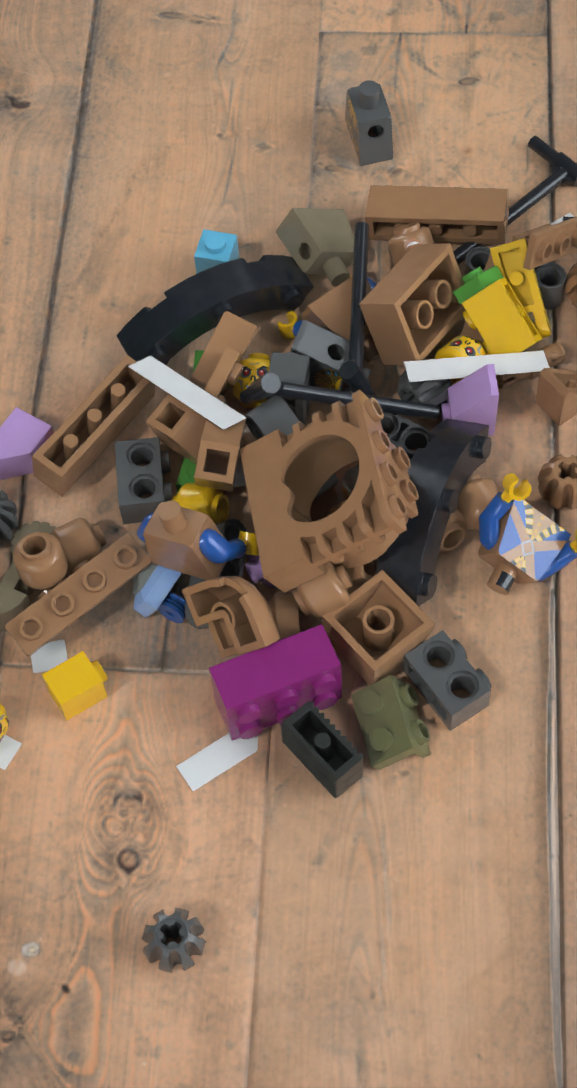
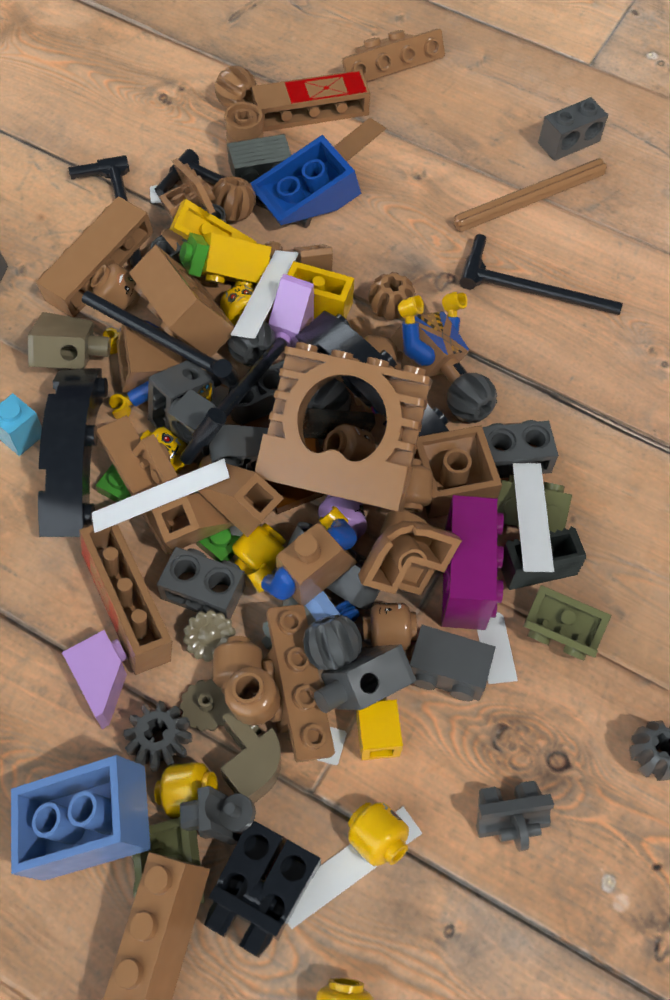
camera: 70 degrees left, 0 degrees up
(45, 837) = (514, 818): none -> dark grey hips
(98, 507) = (206, 633): none -> dark tan piece
(117, 642) = (367, 680): none -> dark grey torso
(120, 597) = (332, 642): none -> dark grey piece
(170, 717) = (451, 663): none -> dark grey brick
(178, 649) = (390, 625): none -> medium nougat head
(267, 804) = (567, 622): none -> olive bracket
(355, 715) = (532, 518): none -> white sticker
(480, 609) = (472, 397): none -> dark grey piece
(519, 415) = (331, 290): none -> yellow brick

